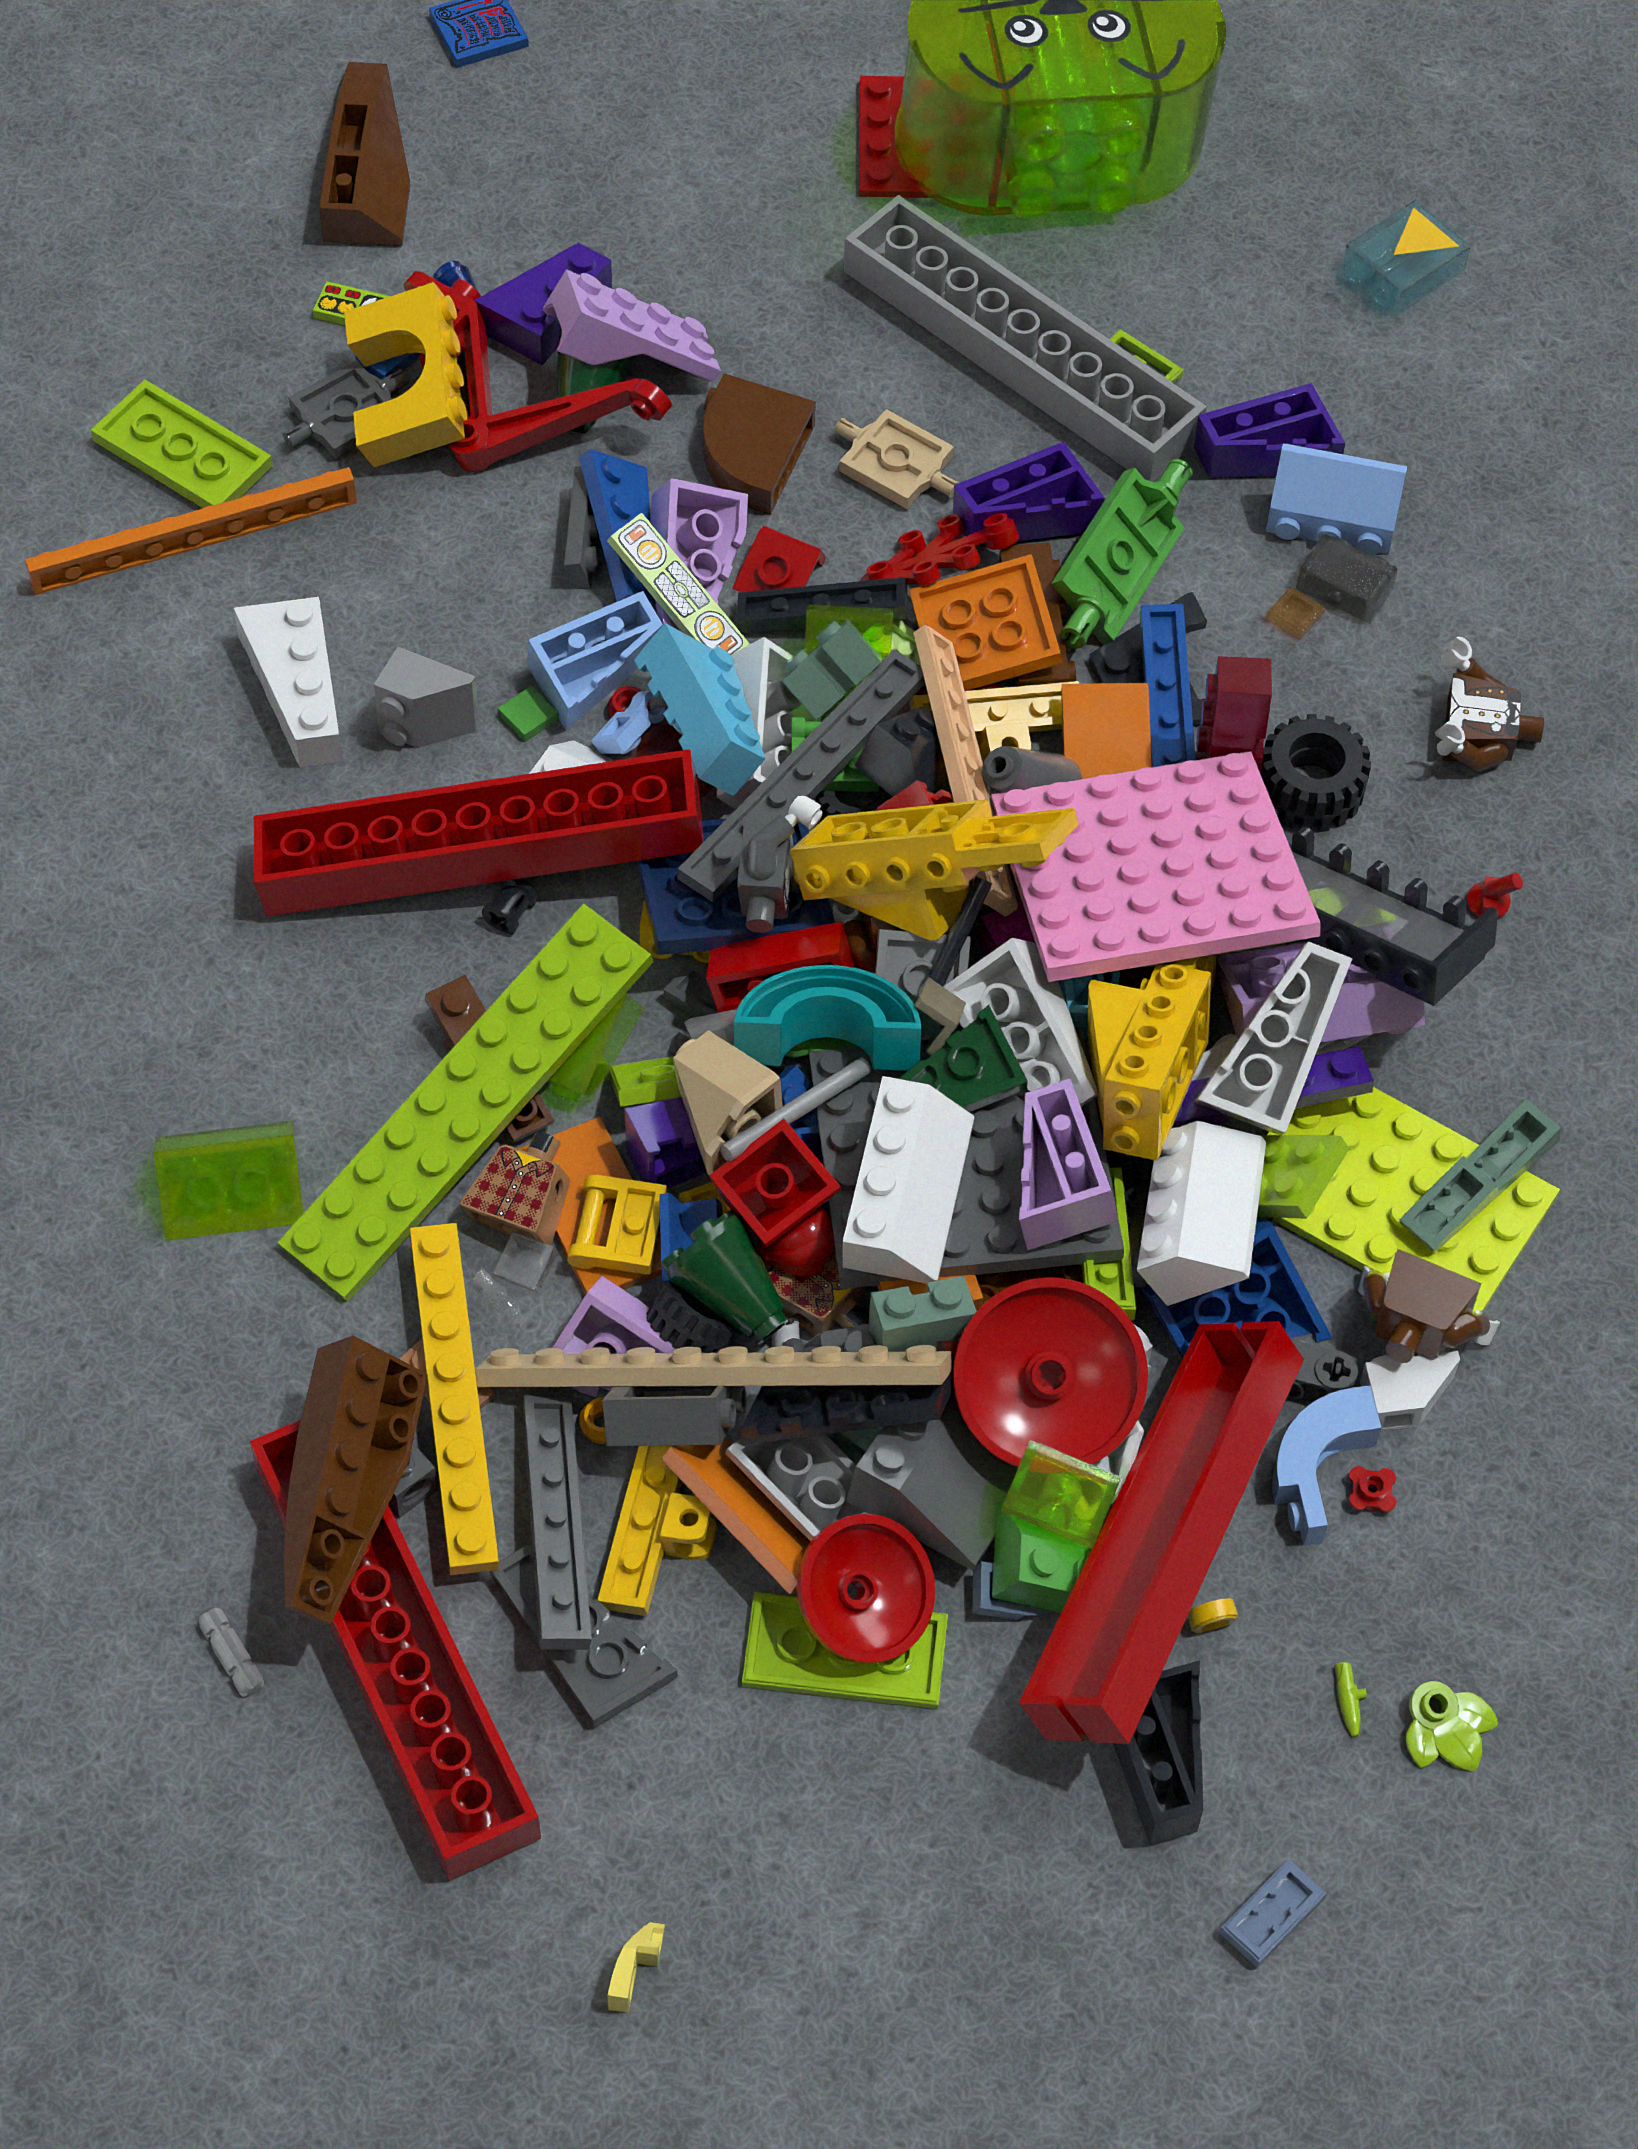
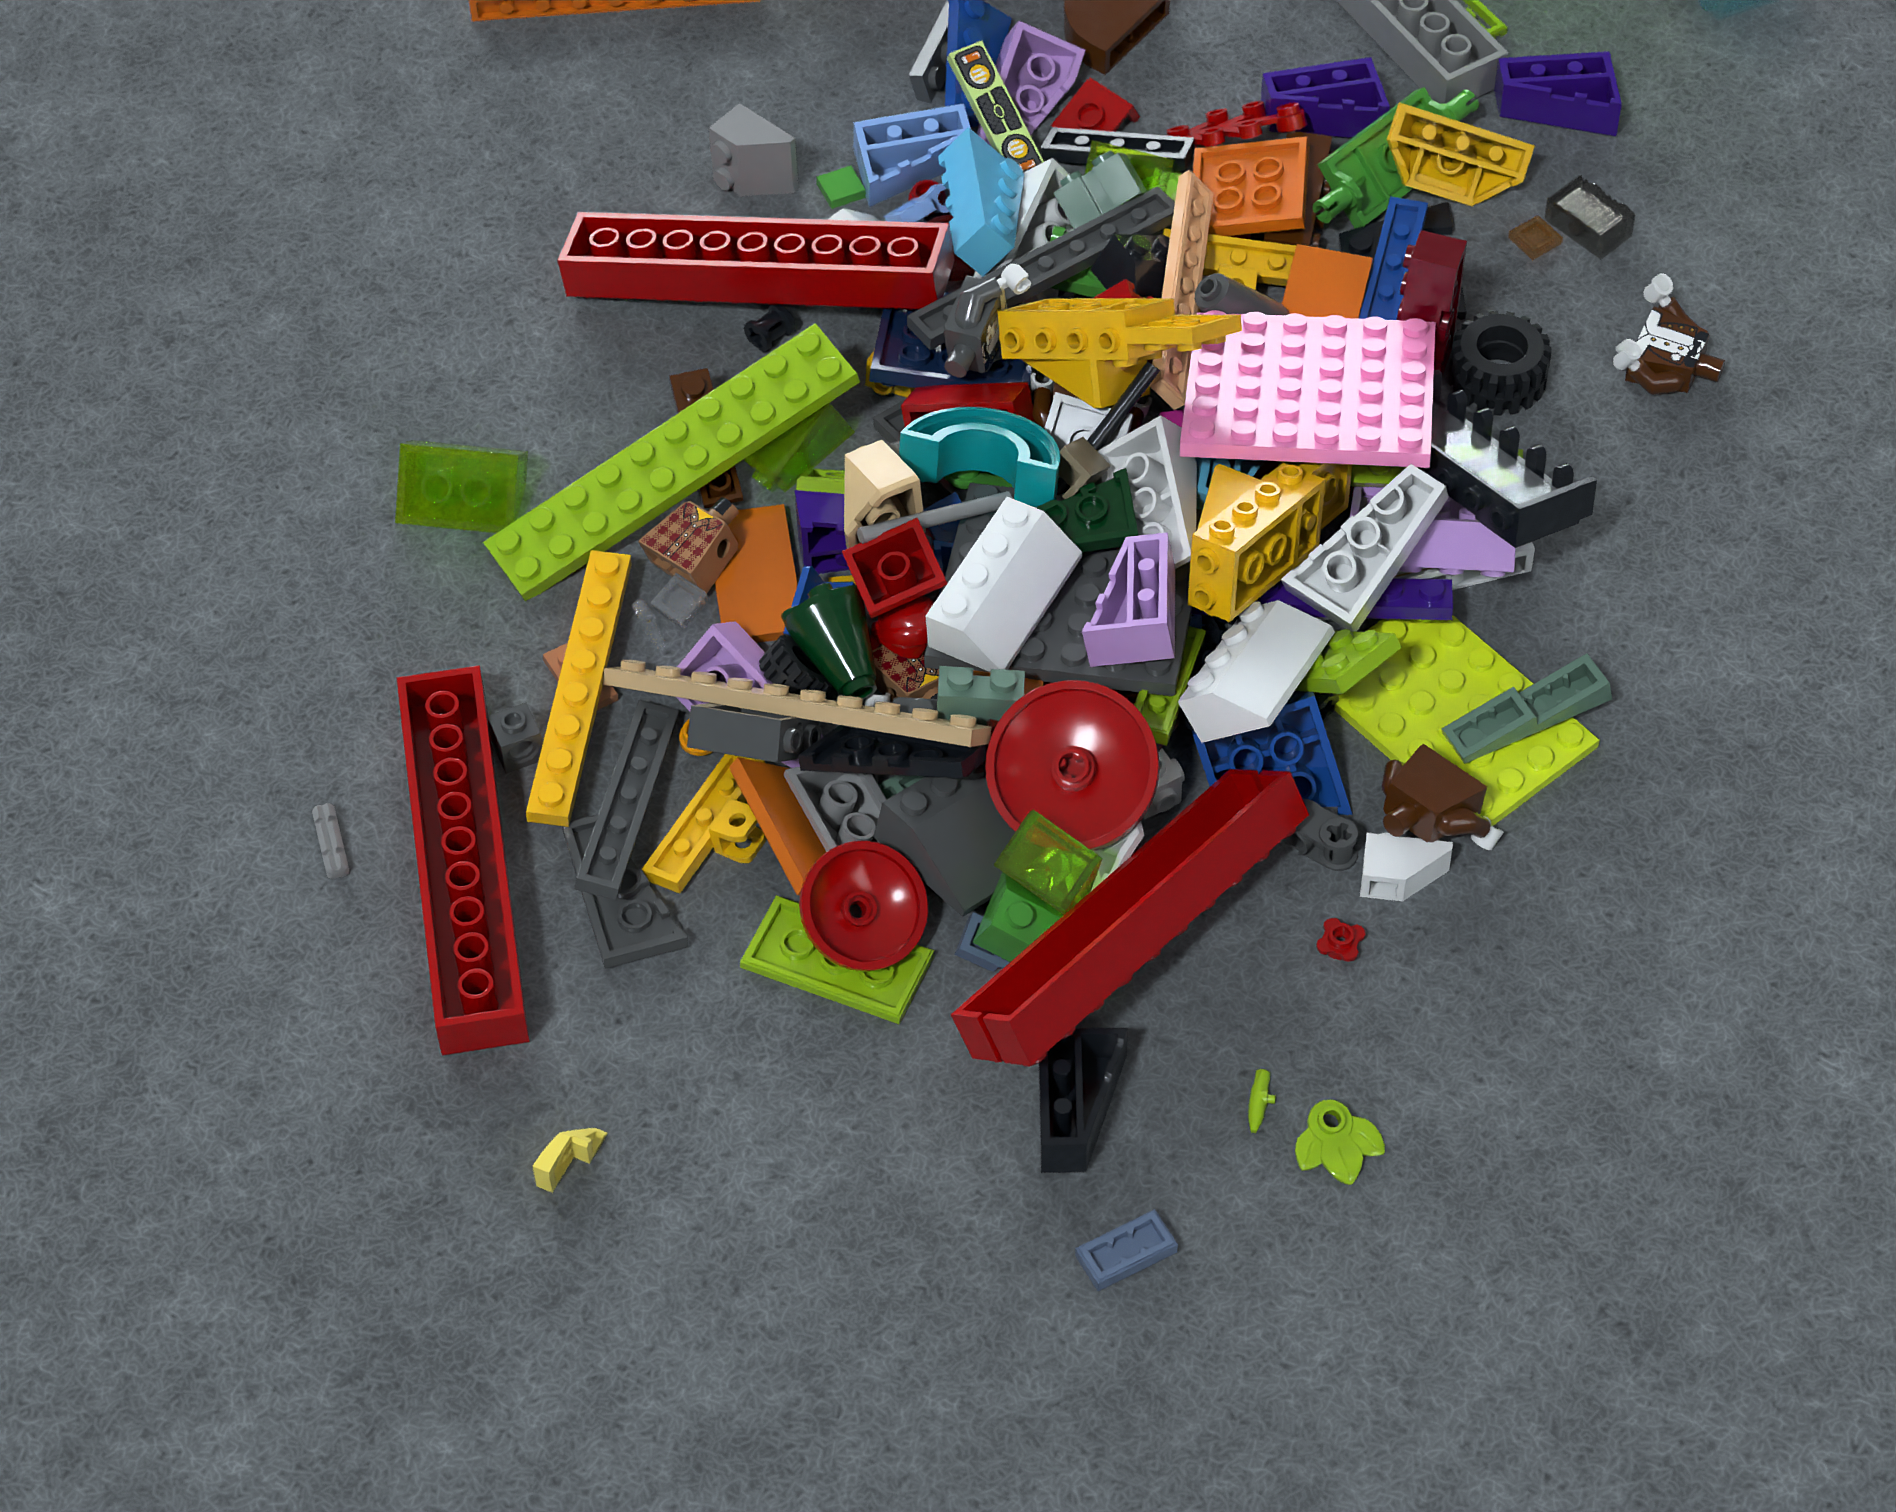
camera: 20 degrees right, 5 degrees down
(293, 666) = (660, 112): white wedge -> none
(345, 1468) = (463, 709): reddish brown wedge -> none
(632, 1227) = (772, 592): yellow plate -> none
(896, 458) = (1226, 49): tan plate -> none
(1192, 540) = (1454, 156): none -> yellow wedge
(1212, 1615) = (1161, 1003): yellow tile -> none
(1322, 1429) = (1299, 885): light blue arch -> none
(1336, 497) = (1601, 146): light blue slope -> none
(1493, 893) = (1627, 495): red plate -> none

